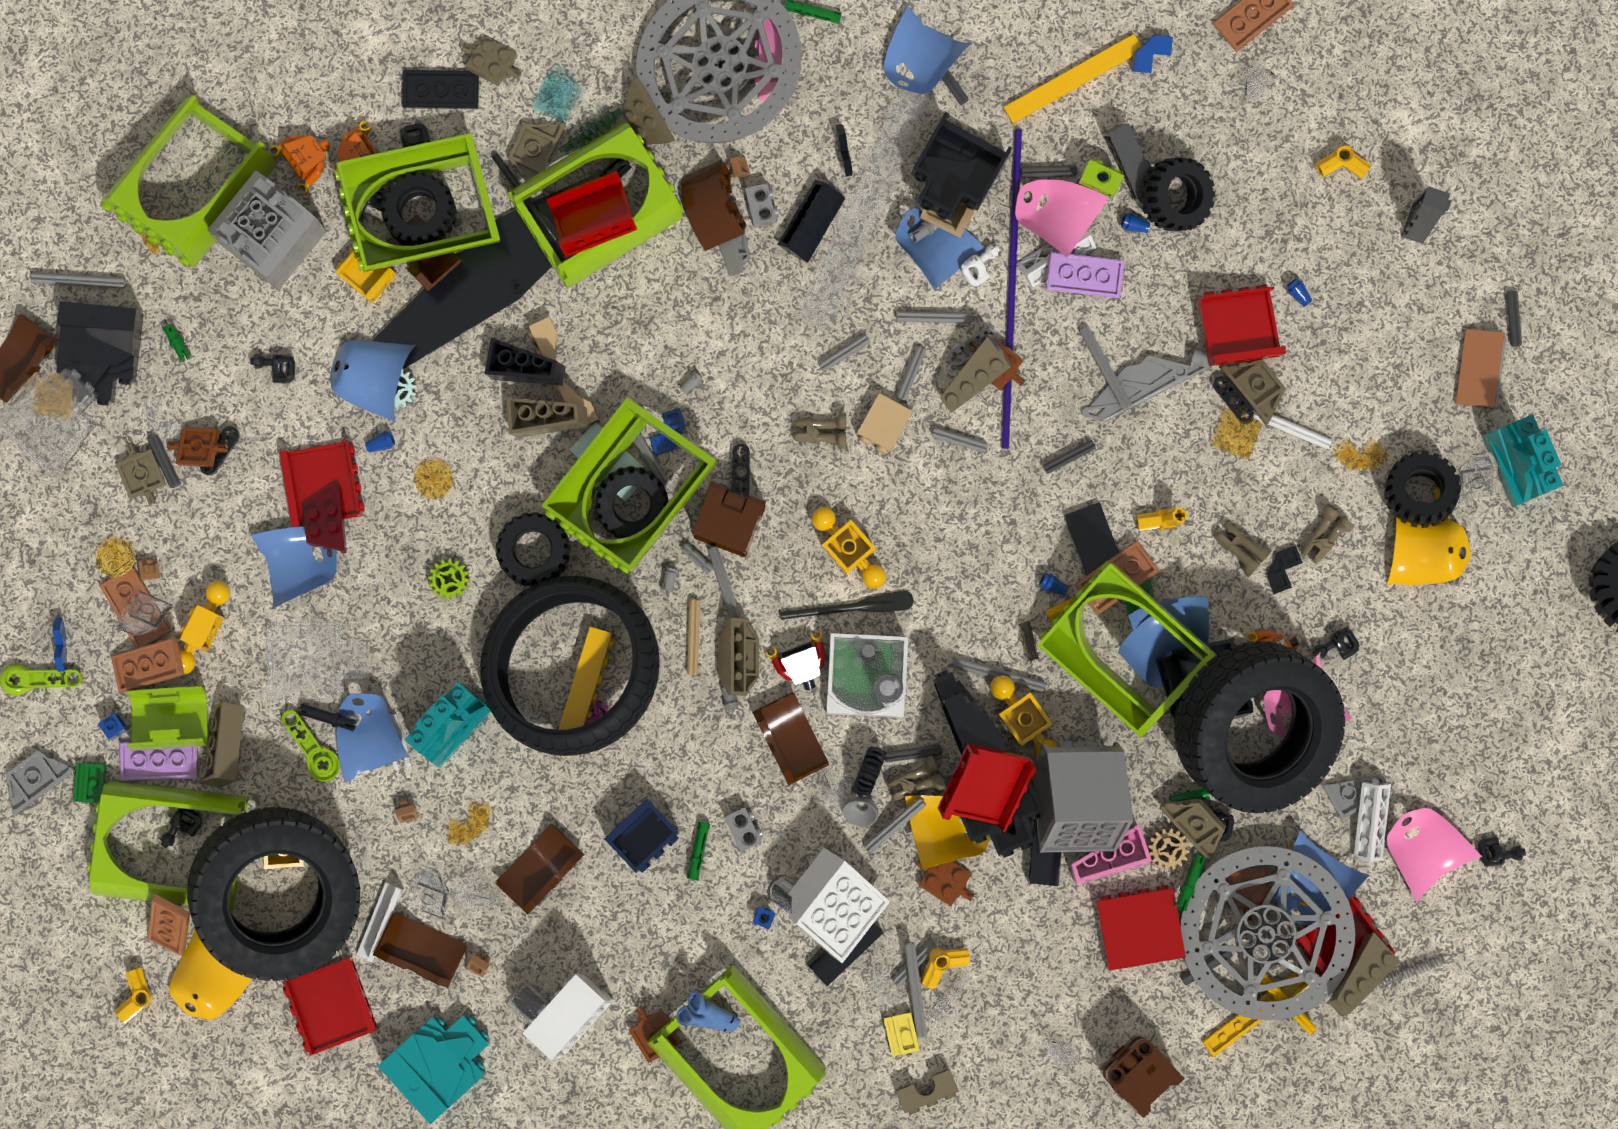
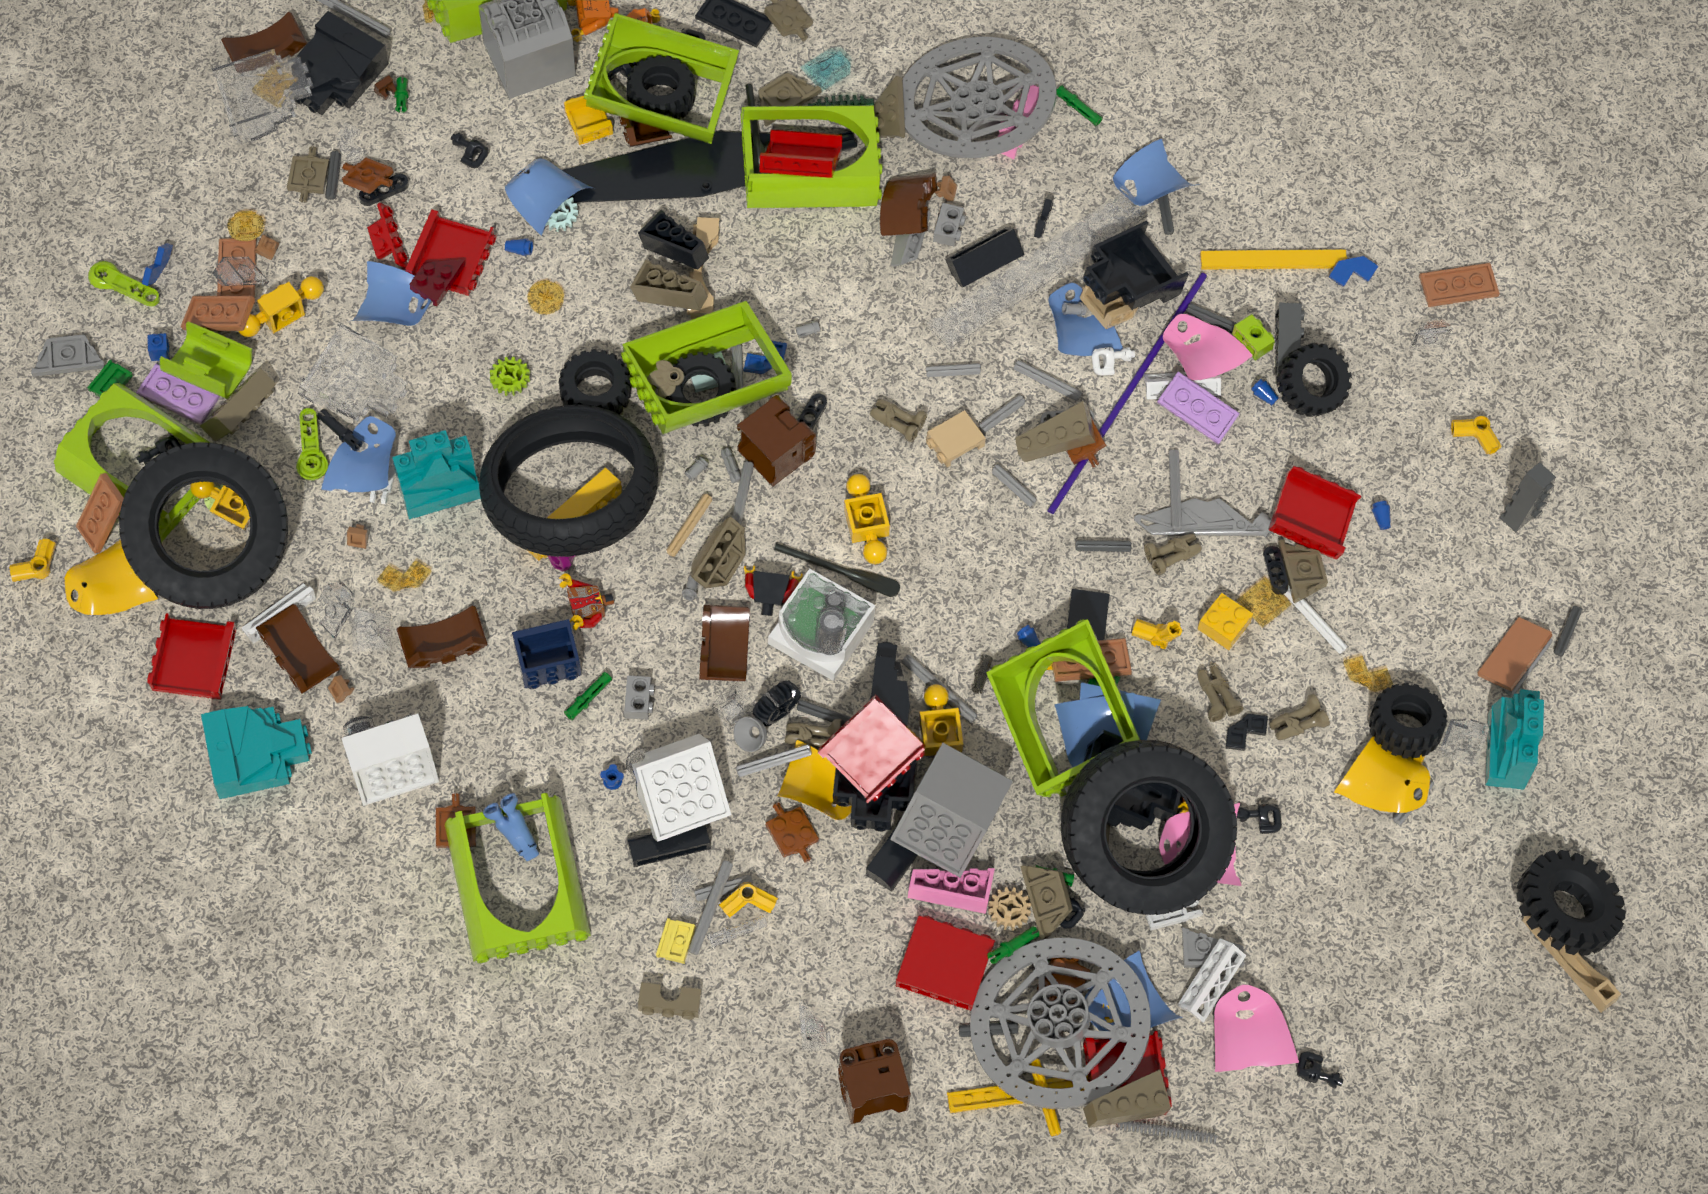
camera: 30 degrees right, 20 degrees down
(156, 340) = (383, 85): none -> reddish brown tile
(252, 499) = (386, 237): none -> red bracket
(597, 519) = (662, 378): none -> dark tan plate
(647, 766) = (585, 602): none -> torso
(1134, 421) = (1178, 545): none -> dark tan piece
(1215, 475) = (1225, 621): none -> yellow brick

